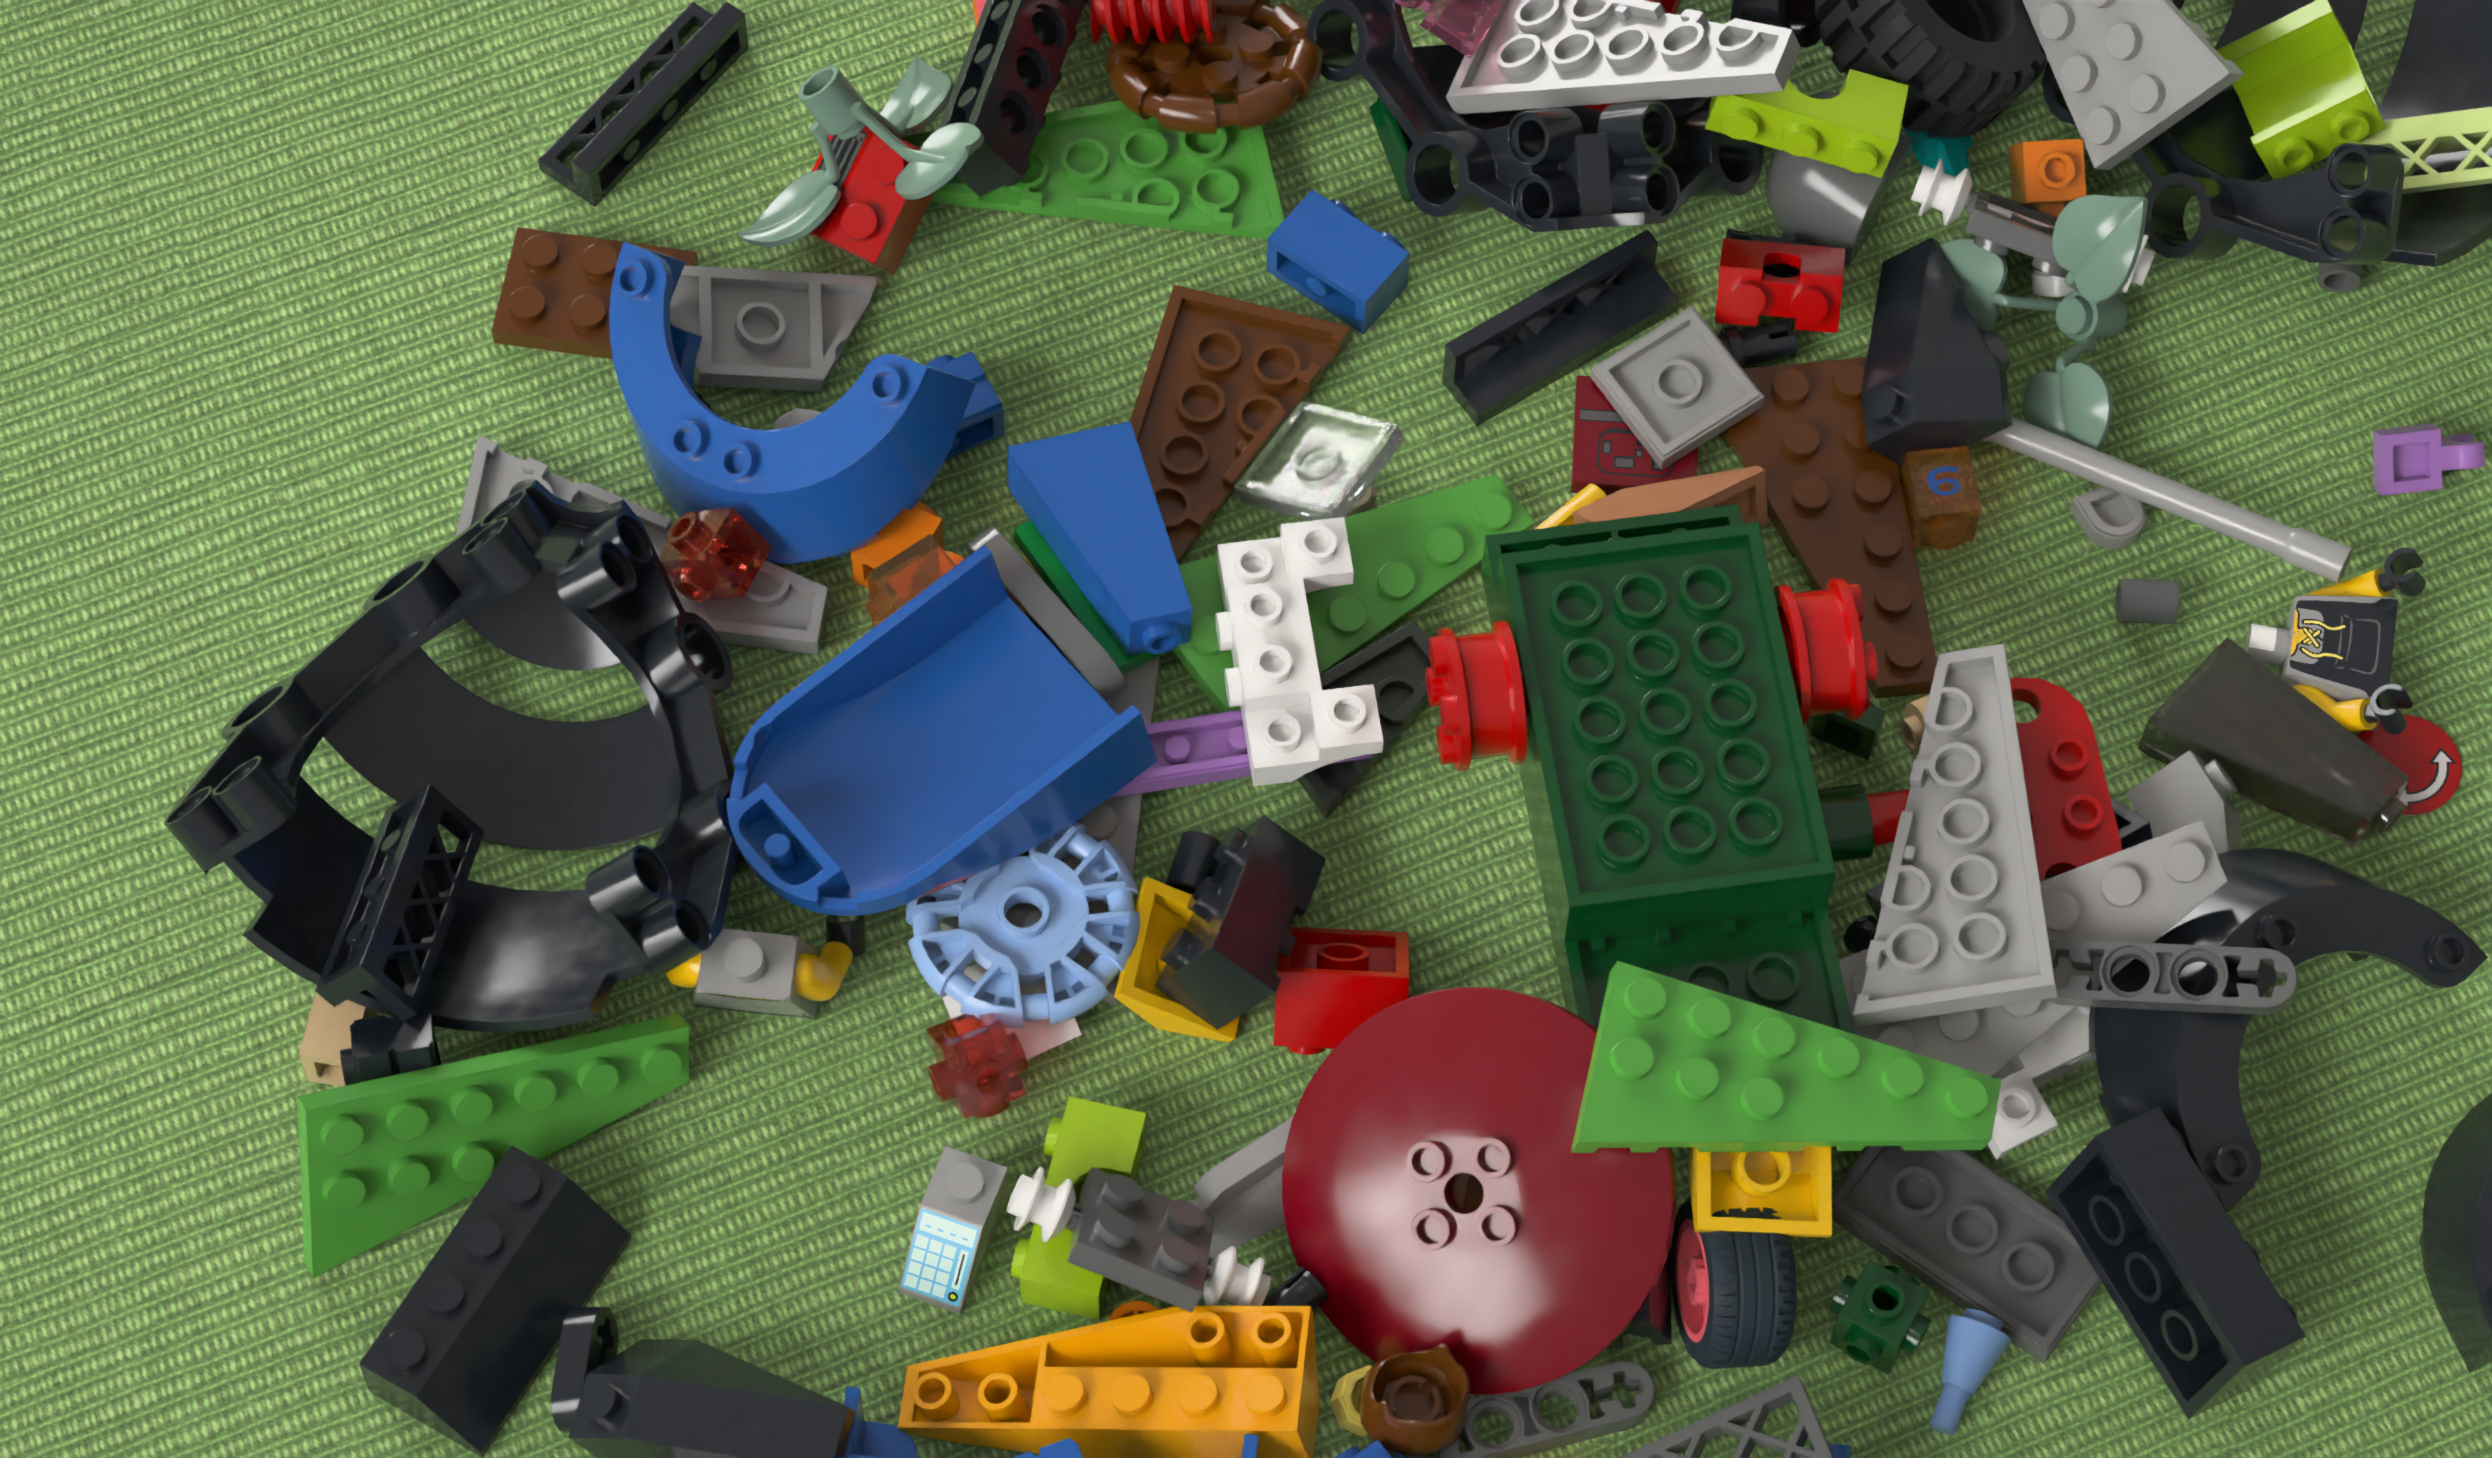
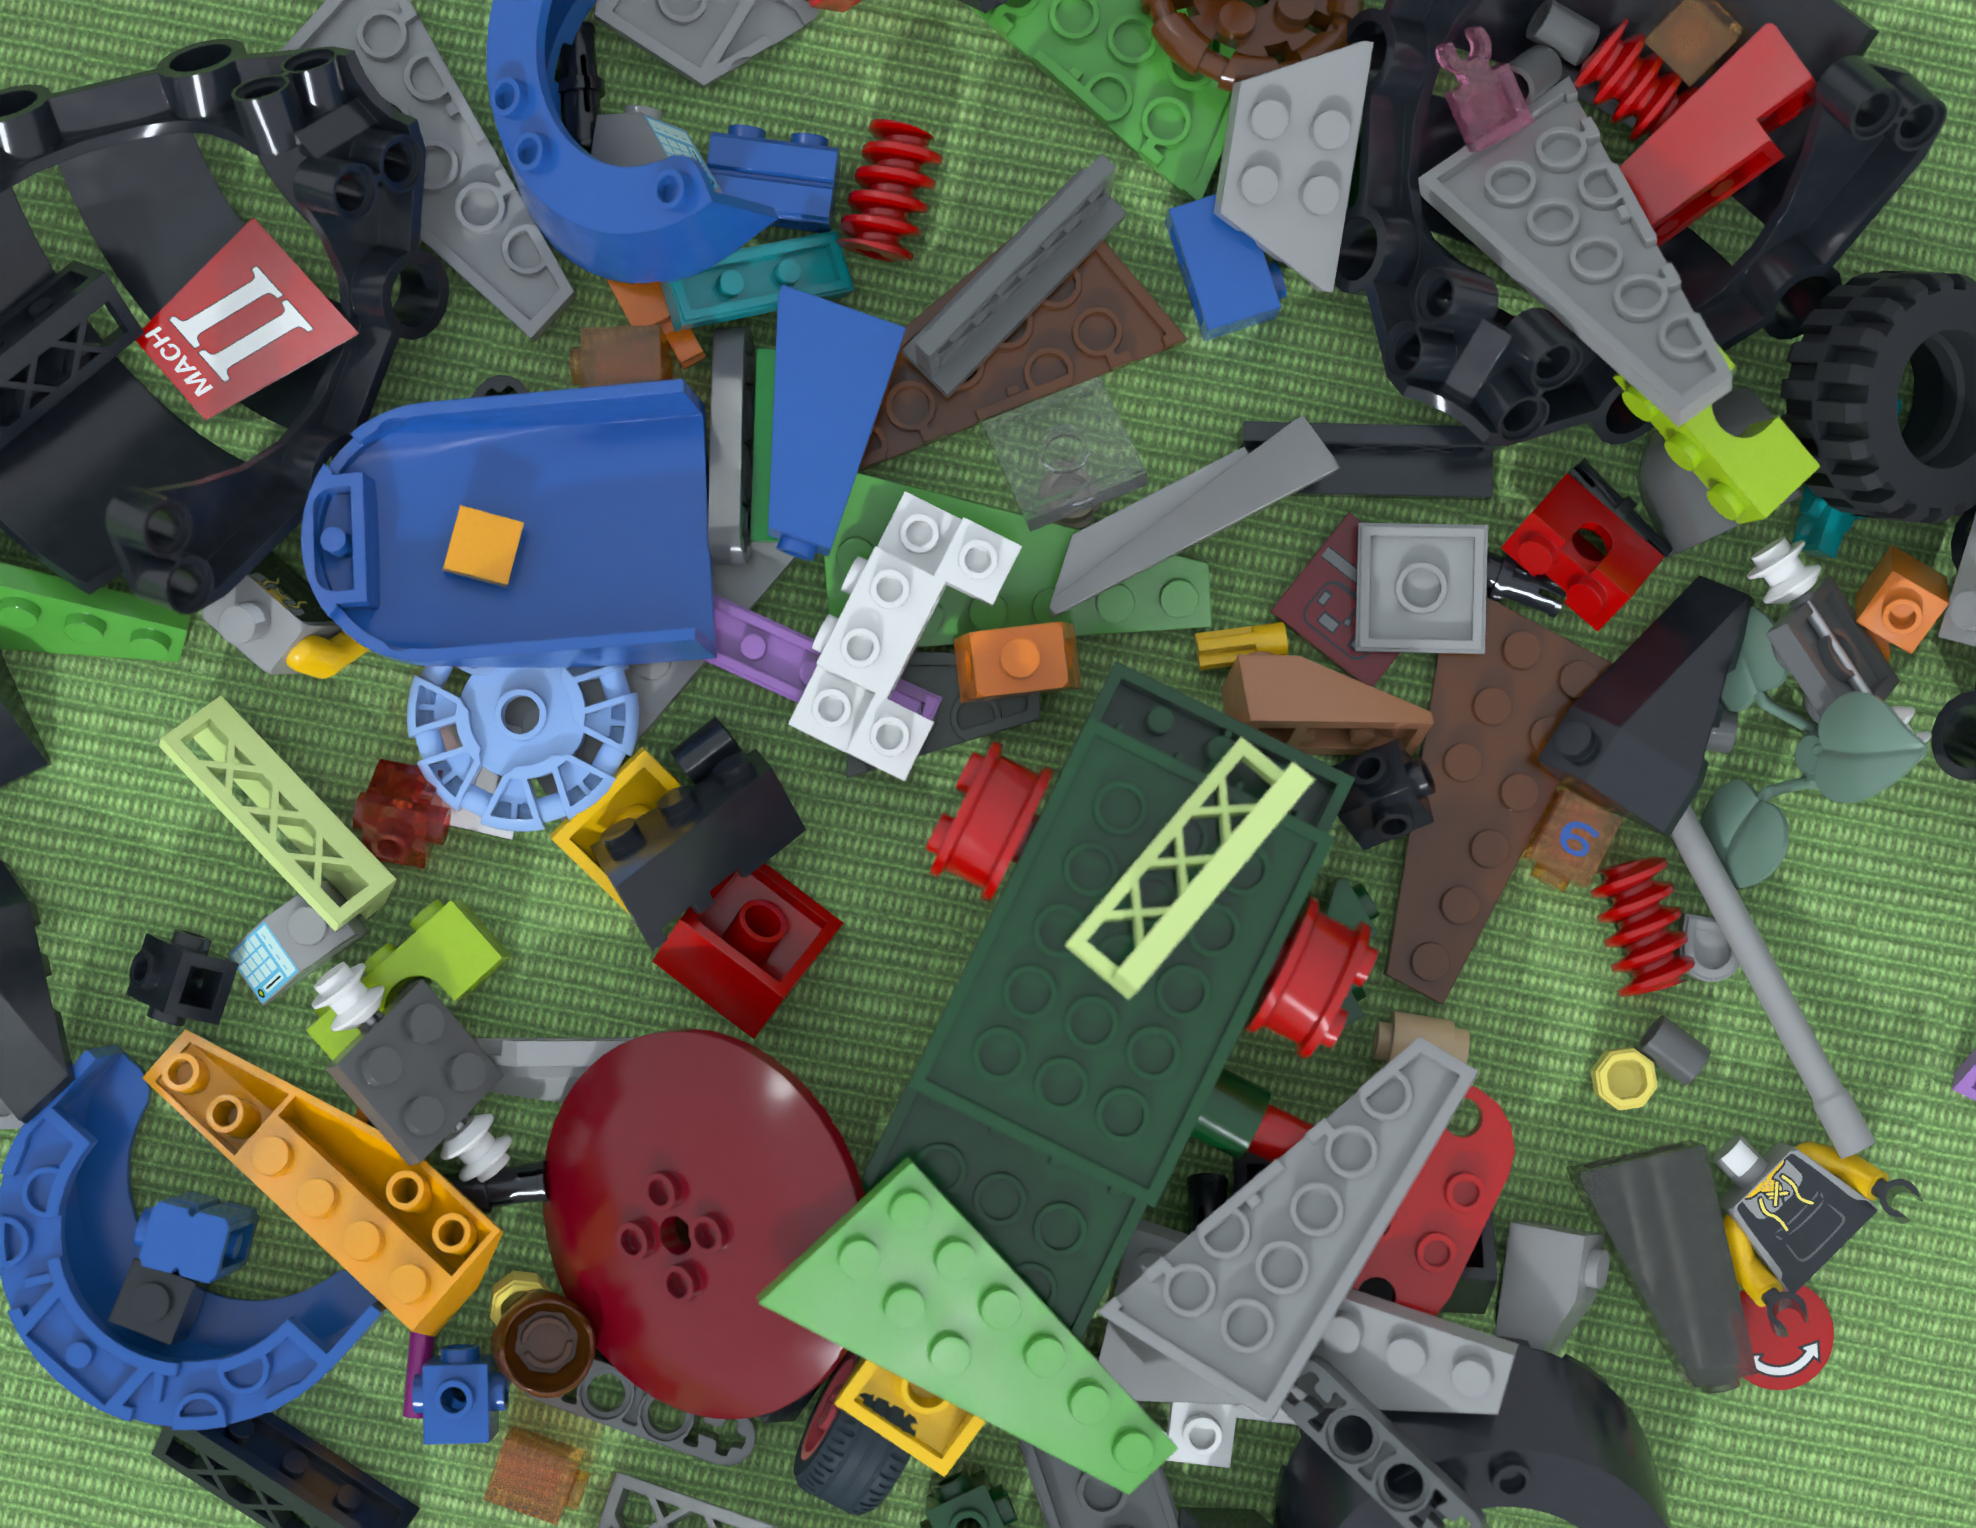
camera: 30 degrees right, 25 degrees up
(567, 769) = (242, 324): none -> sticker
(713, 554) = (479, 209): clear red brick -> none
(871, 1118) = (282, 803): none -> yellowish green fence
(879, 1313) = (181, 978): none -> black brick
(902, 790) = (483, 546): none -> light orange tile
(965, 490) = (752, 278): none -> teal tile
(1034, 362) = (888, 191): none -> red piece
(1187, 350) = (1017, 278): none -> dark grey fence
(1341, 141) = (1294, 158): none -> light grey wing
(1401, 611) = (1017, 661): none -> orange torso
(1456, 432) = (1189, 512): none -> light grey wedge
(1685, 587) = (1209, 882): none -> yellowish green fence
(1785, 537) = (1387, 794): none -> black brick
(2046, 523) = (1643, 925): none -> red piece
(2126, 646) = (1624, 1078): none -> light yellow tile

